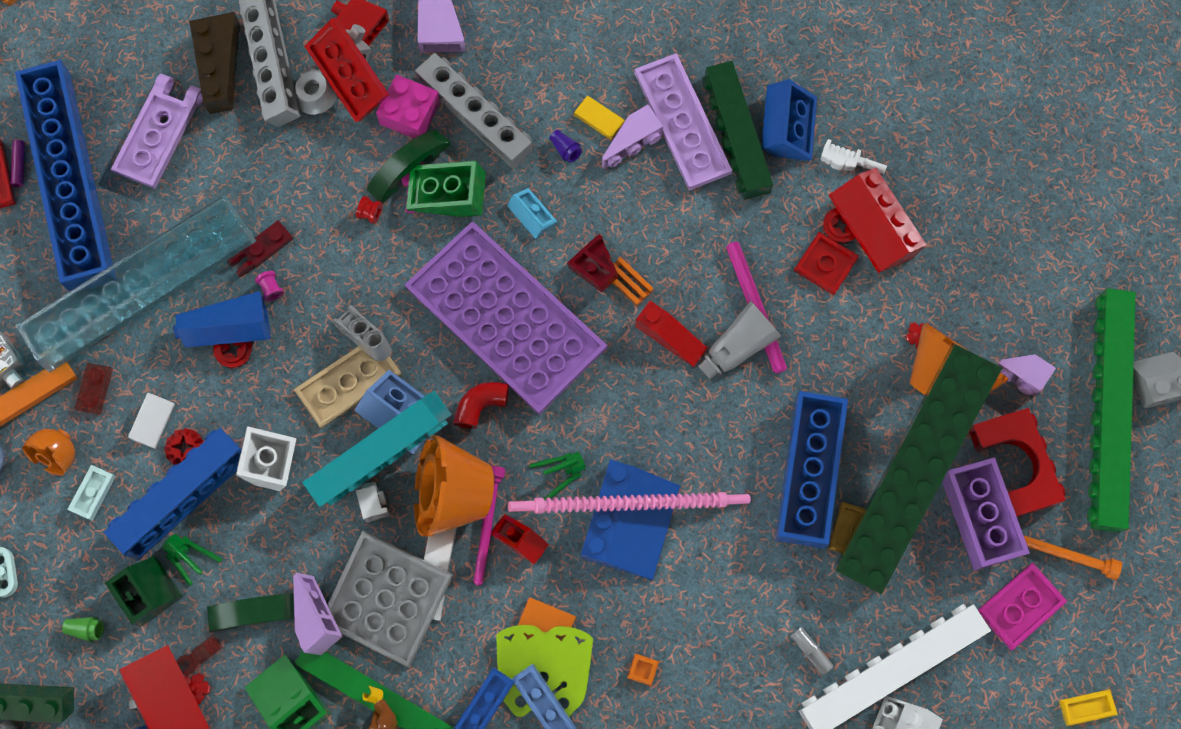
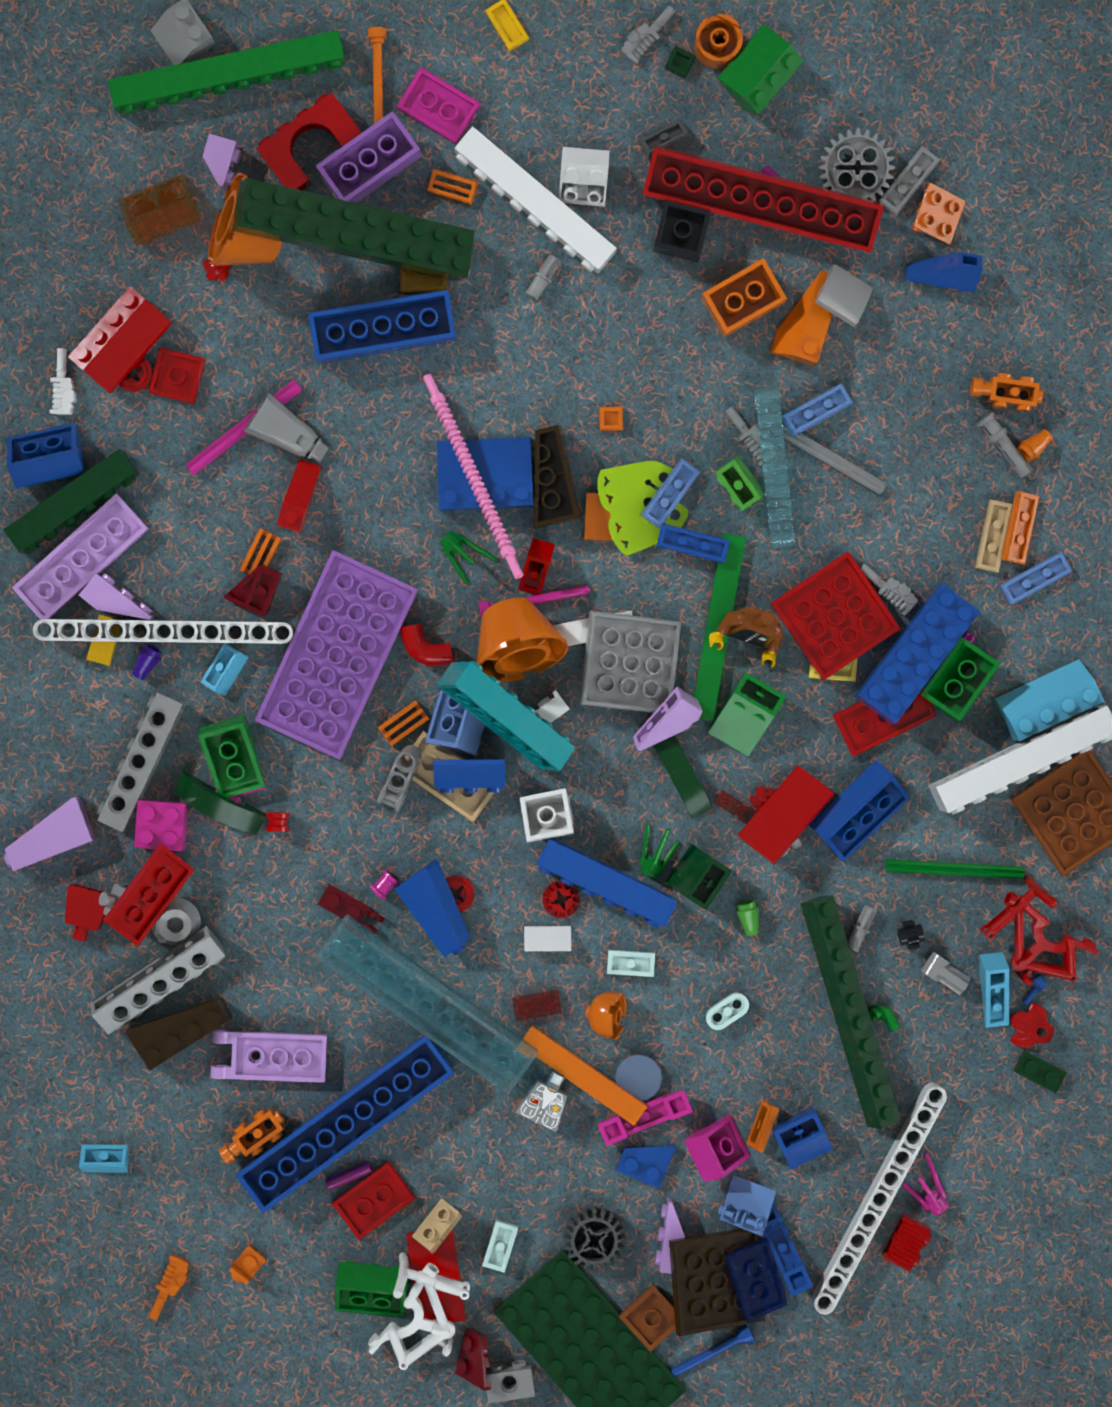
camera: 110 degrees left, 15 degrees up
(93, 105) = (260, 1132): none -> orange brick
(339, 398) = (469, 775): none -> blue slope
(411, 338) = (387, 735): none -> orange tile
(586, 158) = (152, 635): none -> white beam
(597, 585) = (554, 485): none -> dark brown wedge
(922, 608) = (471, 193): none -> orange tile
(992, 299) = (159, 210): none -> clear orange slope

